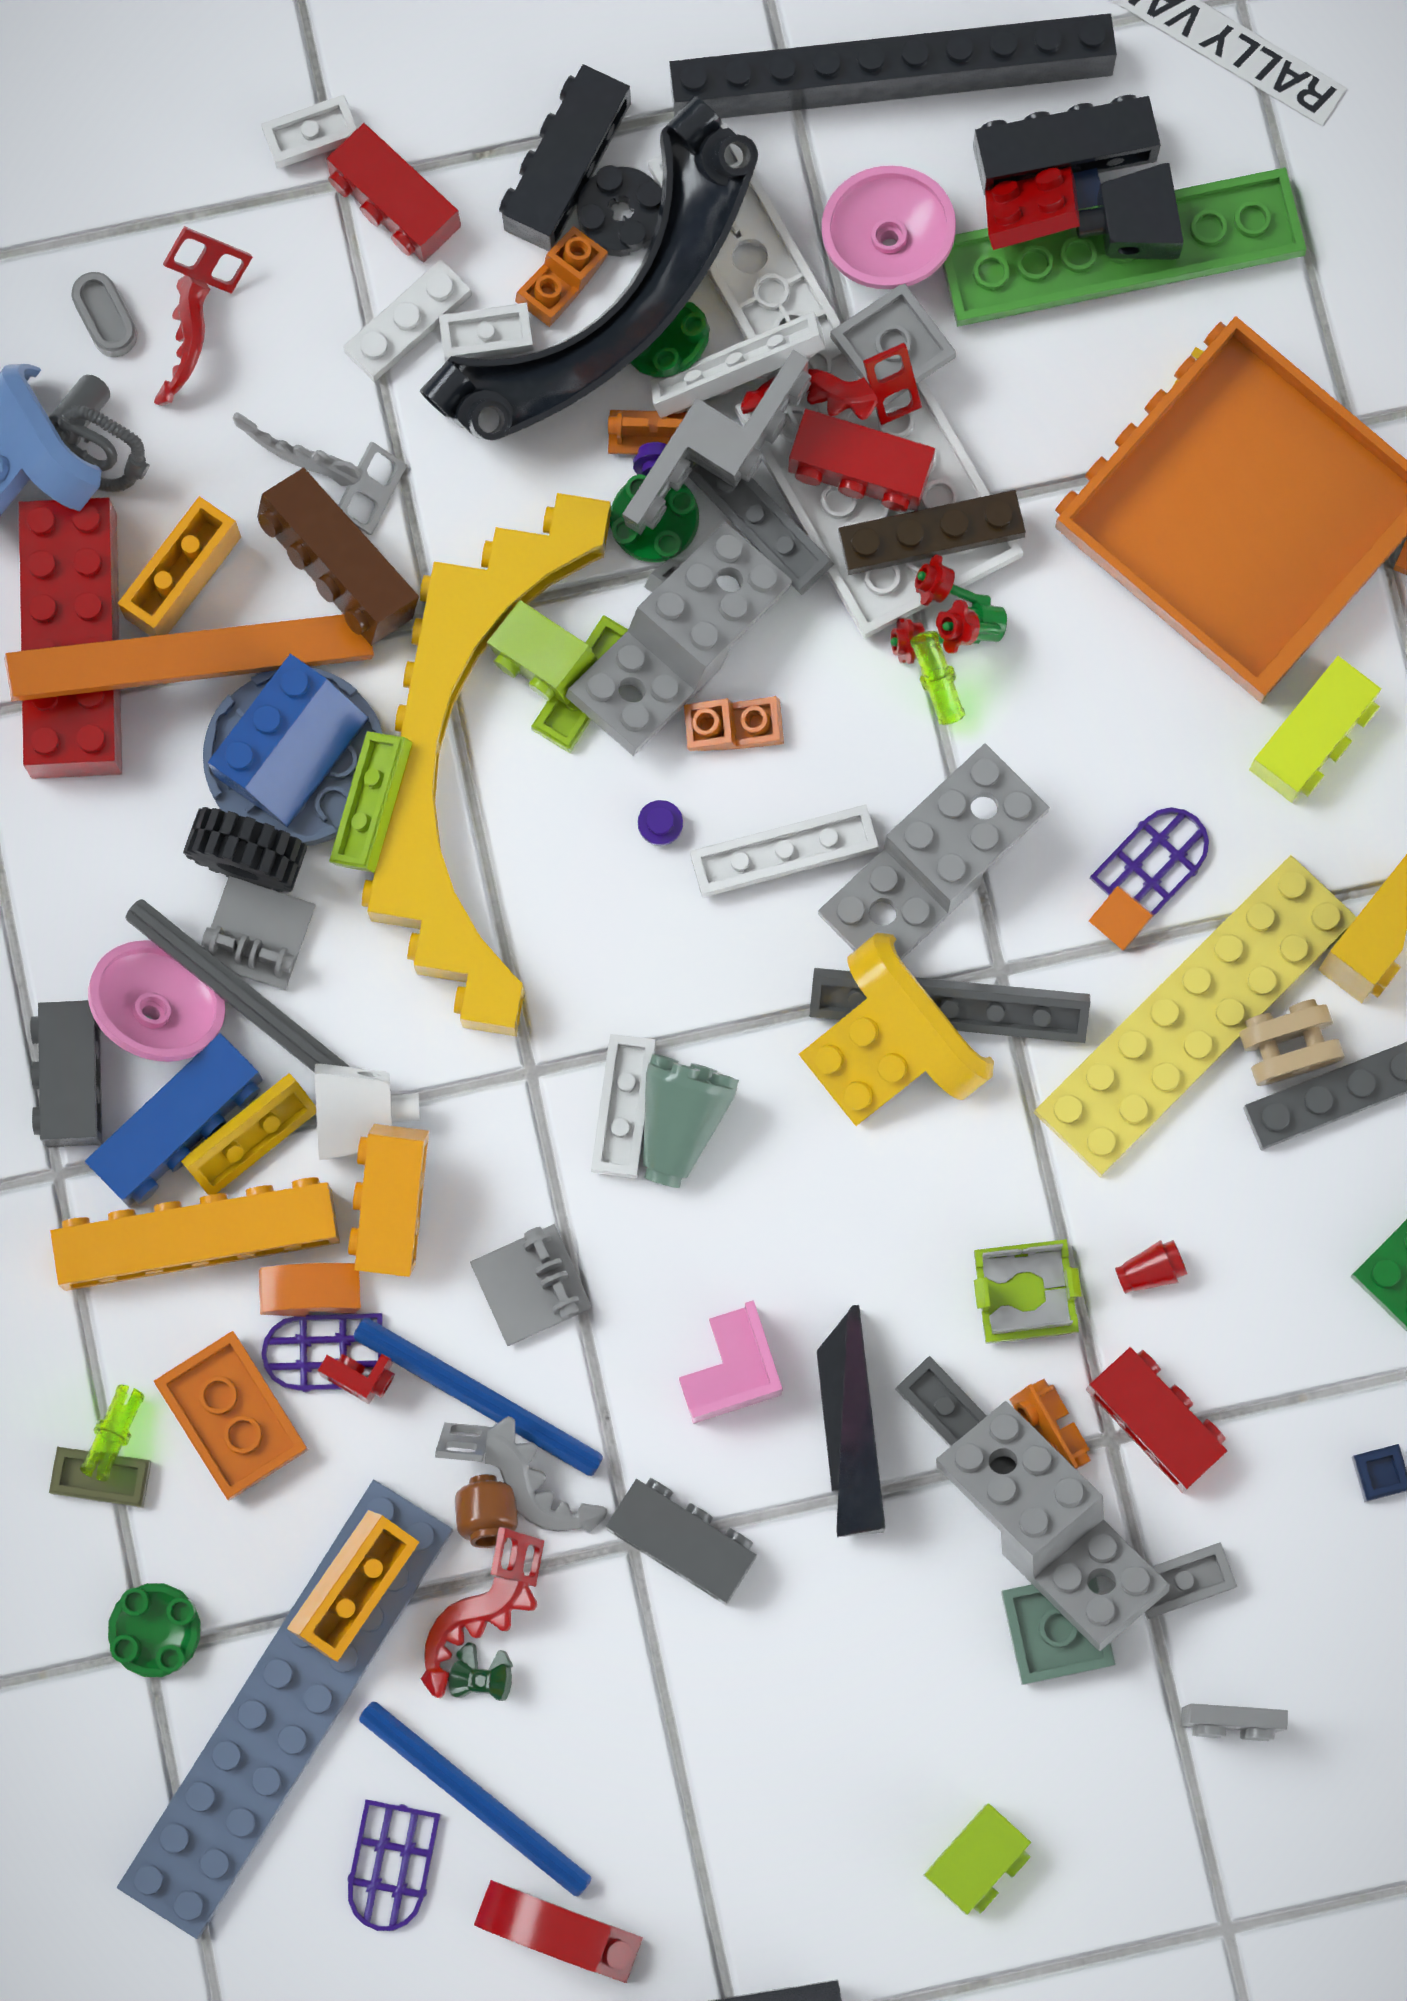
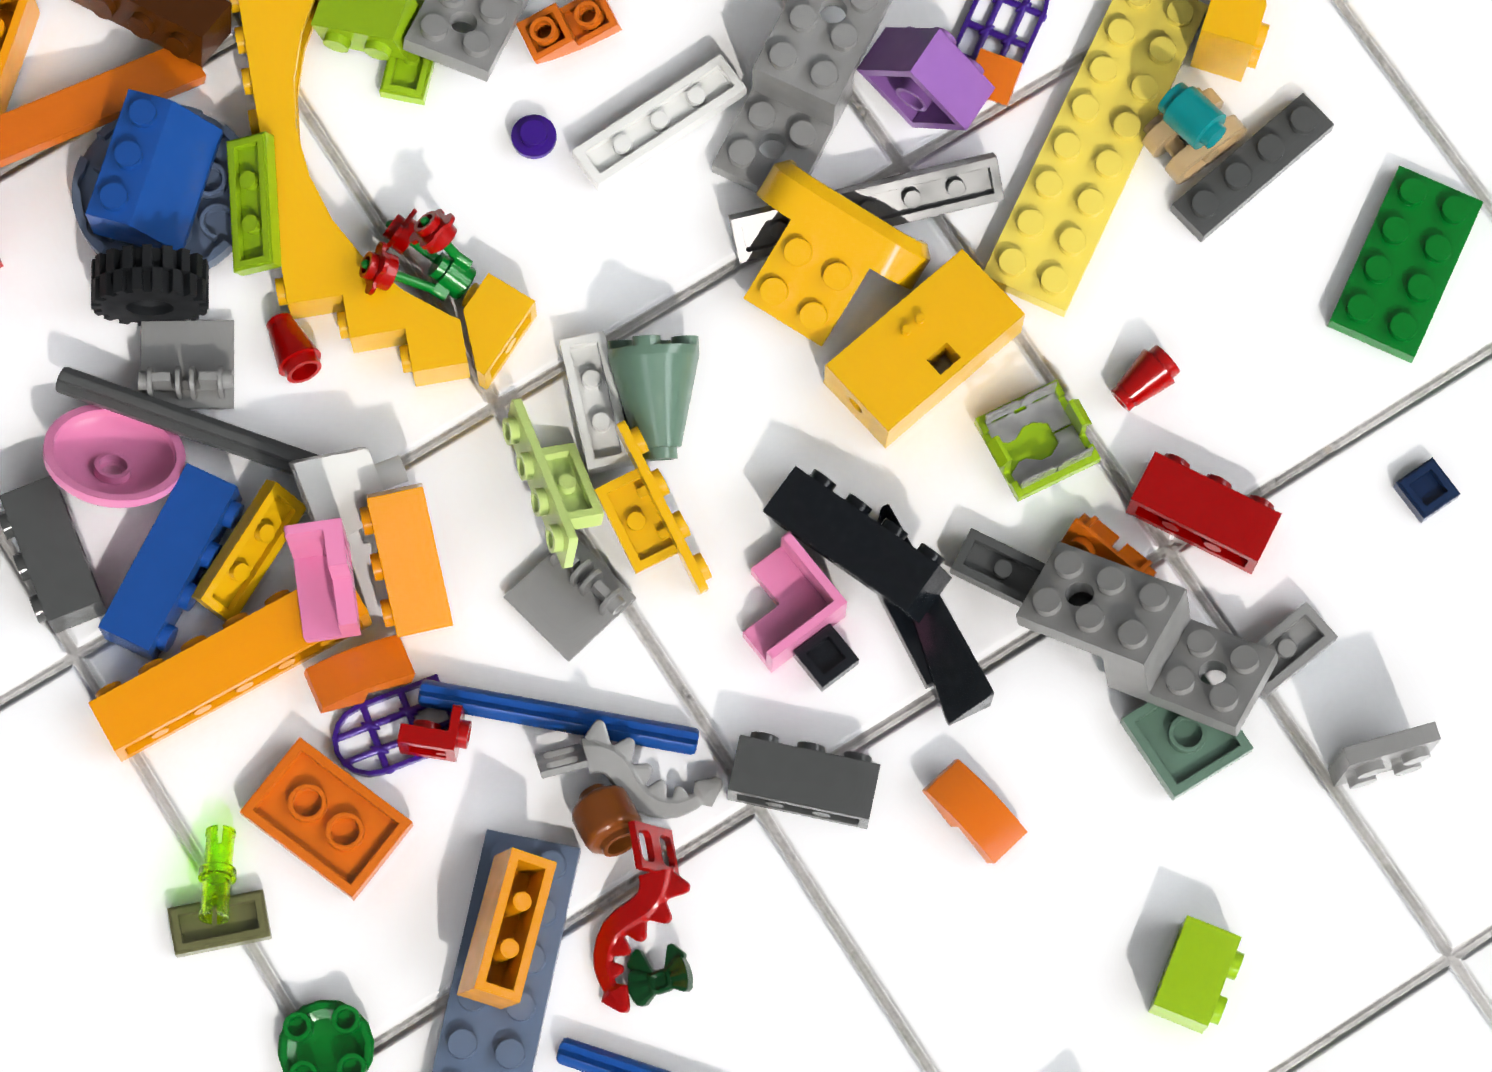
camera: 25 degrees left, 5 degrees down
(304, 1197) = (324, 579): none -> bright pink panel
(359, 953) = (293, 350): none -> red cone
(526, 895) = (428, 235): none -> plant
(554, 997) = (495, 324): none -> yellow slope
(557, 1176) = (557, 484): none -> yellowish green bracket
(624, 1237) = (642, 517): none -> yellow bracket
(747, 1430) = (826, 657): none -> black plate
(814, 1336) = (857, 543): none -> black brick
(830, 1628) = (976, 811): none -> orange slope
(951, 1164) = (923, 348): none -> yellow brick
(1050, 902) = (926, 77): none -> medium lavender brick
(1291, 1031) = (1192, 116): none -> teal brick

